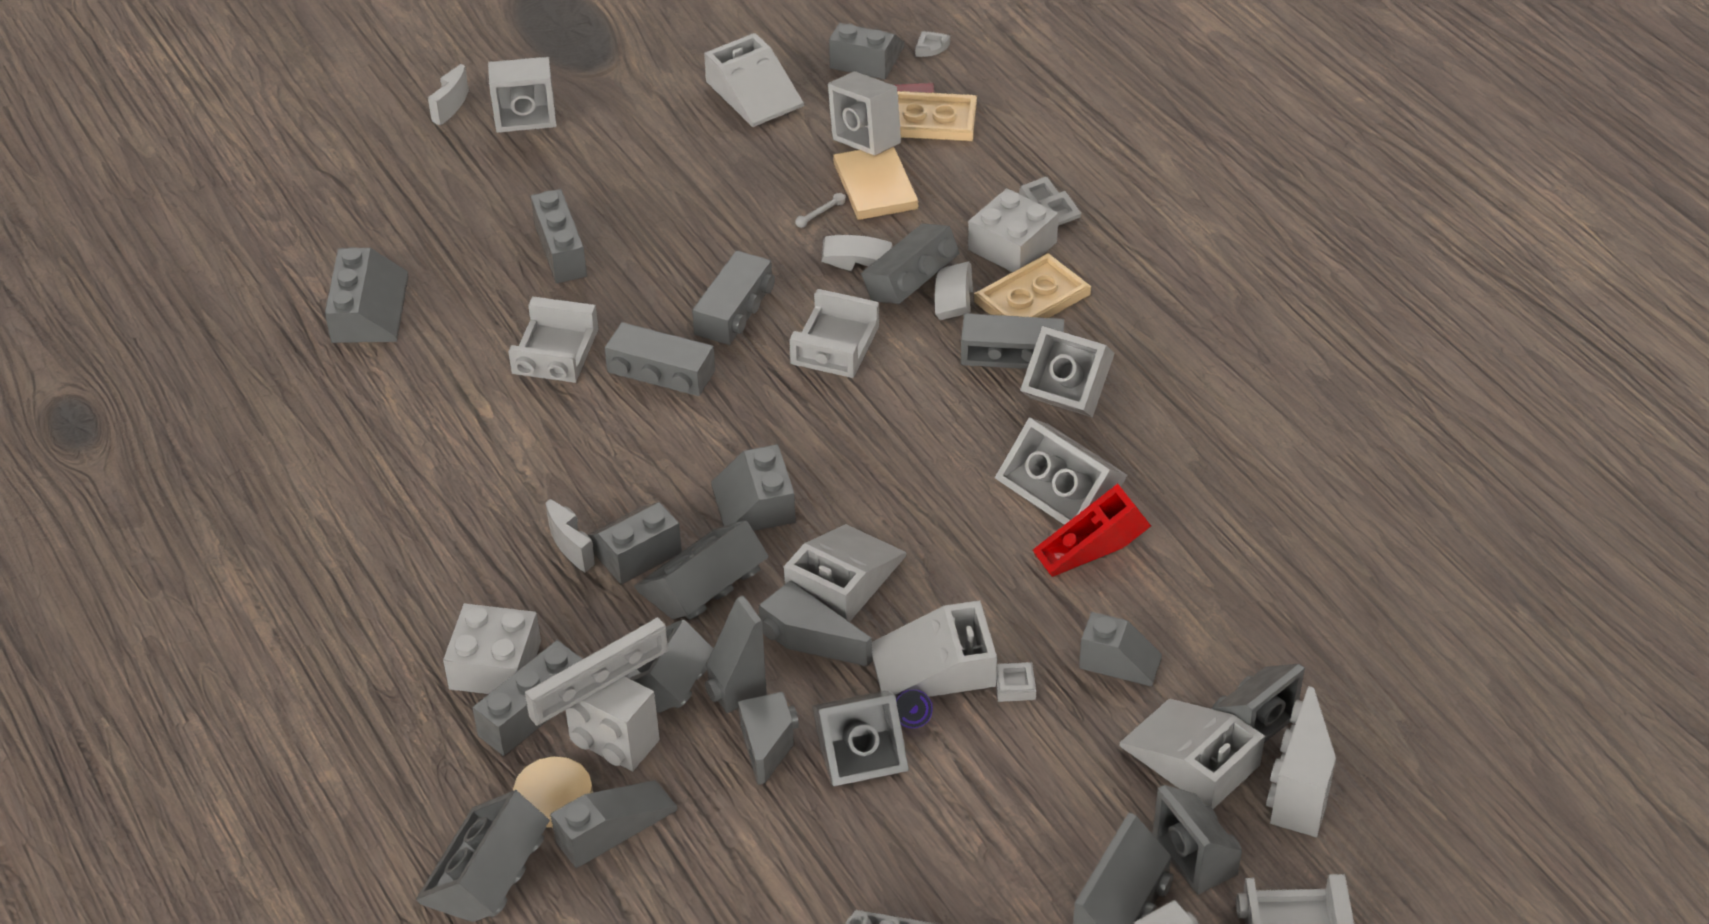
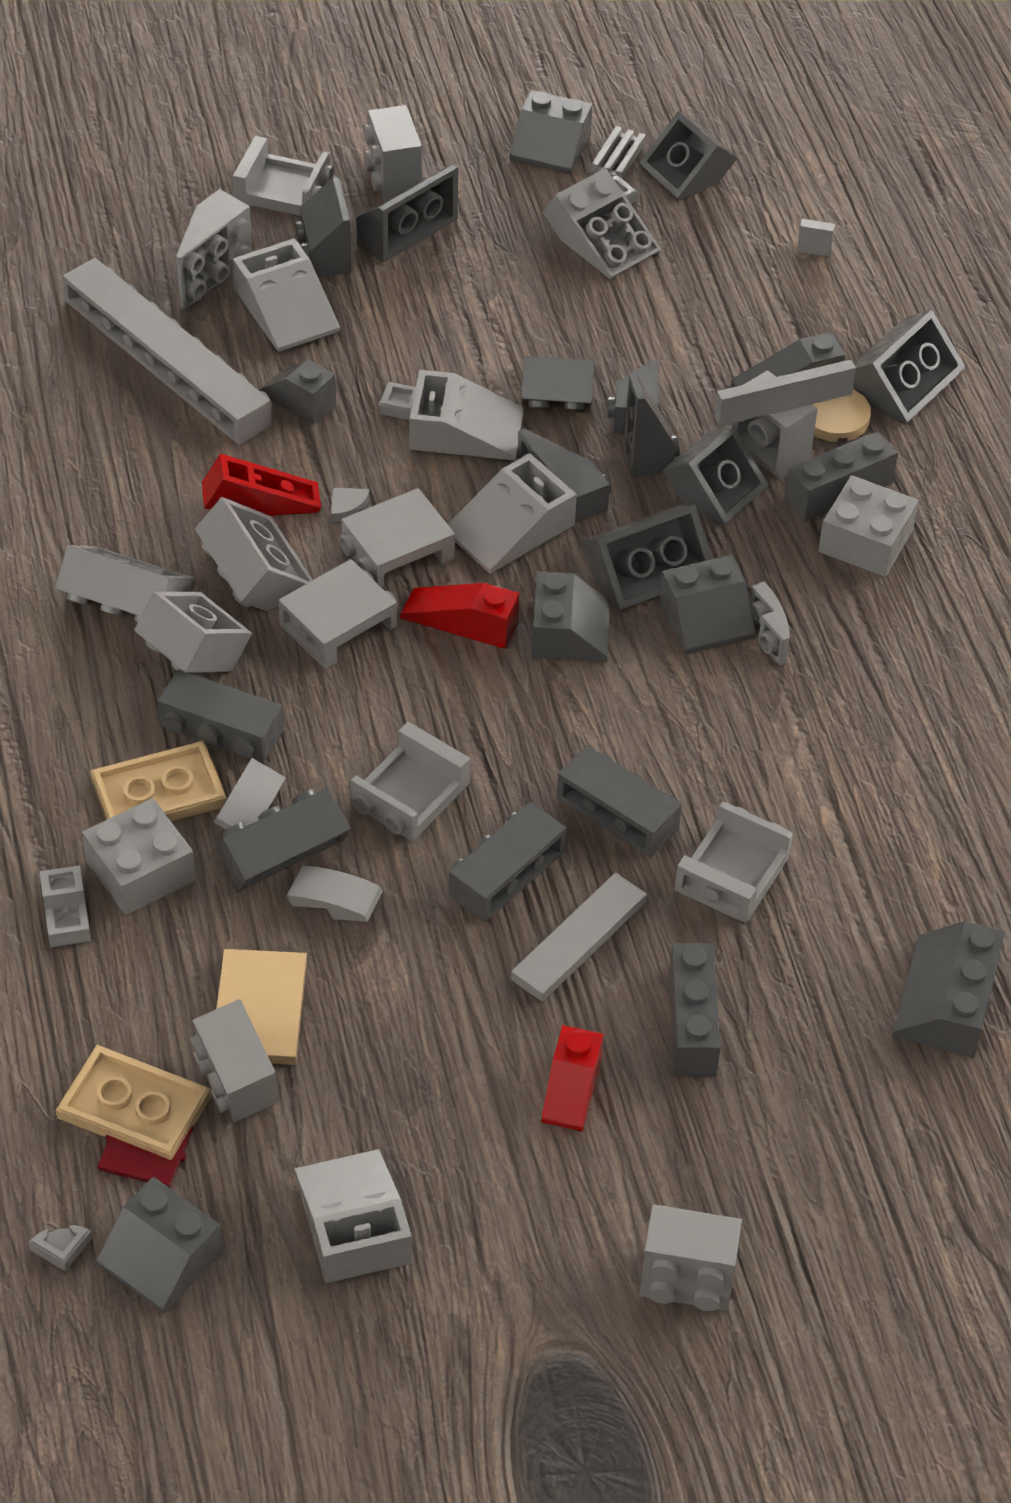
camera: 165 degrees left, 5 degrees up
(450, 97) = (788, 1330): light grey slope -> none
(634, 188) = (572, 1078): none -> red slope
(660, 275) = (578, 937): none -> light grey tile
(838, 199) = (316, 997): light grey hinge -> none
(845, 475) = (466, 610): none -> red slope
(914, 708) = (507, 390): black tile -> none
(939, 522) = (396, 534): none -> light grey panel
(959, 443) = (335, 610): none -> light grey panel
(1010, 558) = (347, 502): none -> light grey tile
(1160, 426) = (115, 580): none -> light grey slope
(1248, 644) = (168, 351): none -> light grey brick
(1265, 698) = (214, 300): dark grey slope -> none

